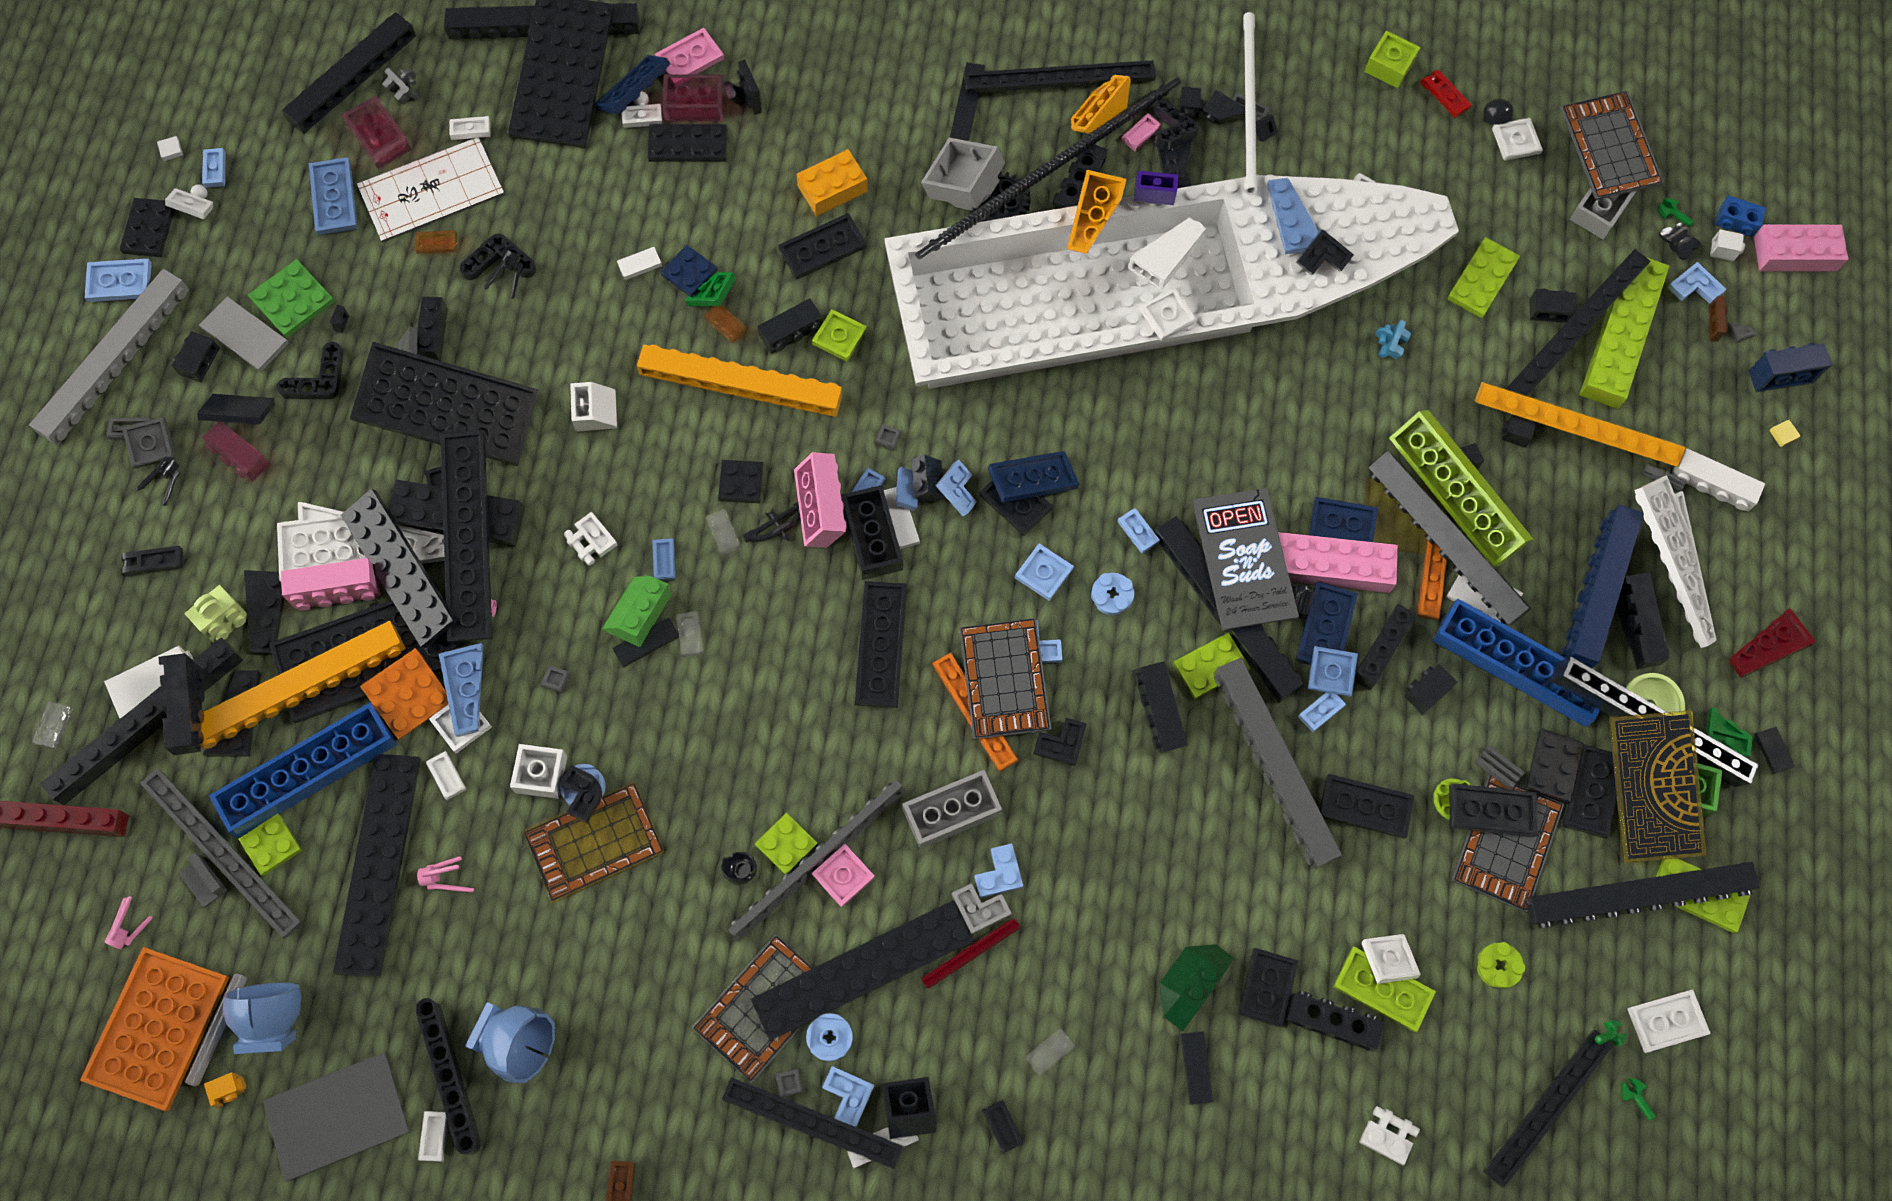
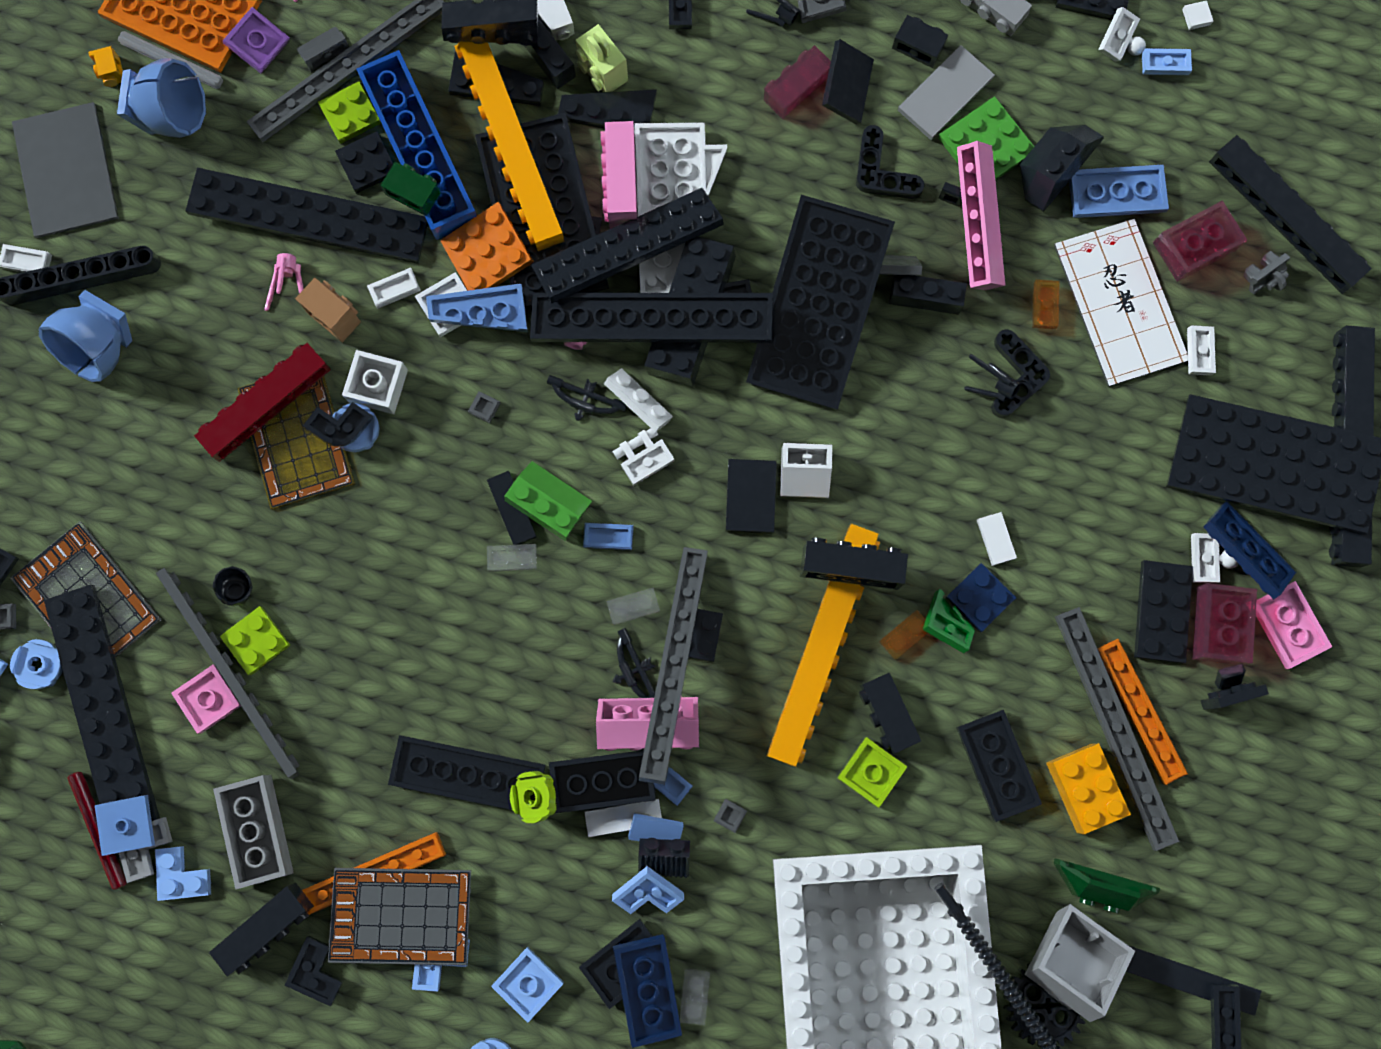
camera: 100 degrees right, 10 degrees up
(195, 944) = (256, 40): none -> medium lavender tile
(308, 242) = (1056, 161): none -> black wedge
(321, 820) = (365, 162): none -> black plate
(351, 756) = (411, 188): none -> dark green brick
(360, 291) = (981, 216): none -> bright pink brick
(471, 821) = (329, 309): none -> medium nougat brick
(535, 592) = (588, 391): none -> black piece
(540, 548) = (638, 400): none -> white plate
(561, 867) = (262, 402): none -> dark red brick
(618, 450) = (751, 496): none -> black tile
(671, 353) = (854, 564): none -> black brick
(767, 153) = (1141, 712): none -> orange tile
(768, 478) = (673, 667): none -> dark grey plate
(781, 168) = (1116, 729): none -> dark grey plate
(894, 567) = (544, 793): none -> lime plate
(906, 168) = (1103, 887): none -> dark green wedge
(962, 921) = (124, 825): none -> medium blue plate
(1032, 446) = (694, 996): none -> clear plate
(1033, 788) = (261, 929): none -> black brick

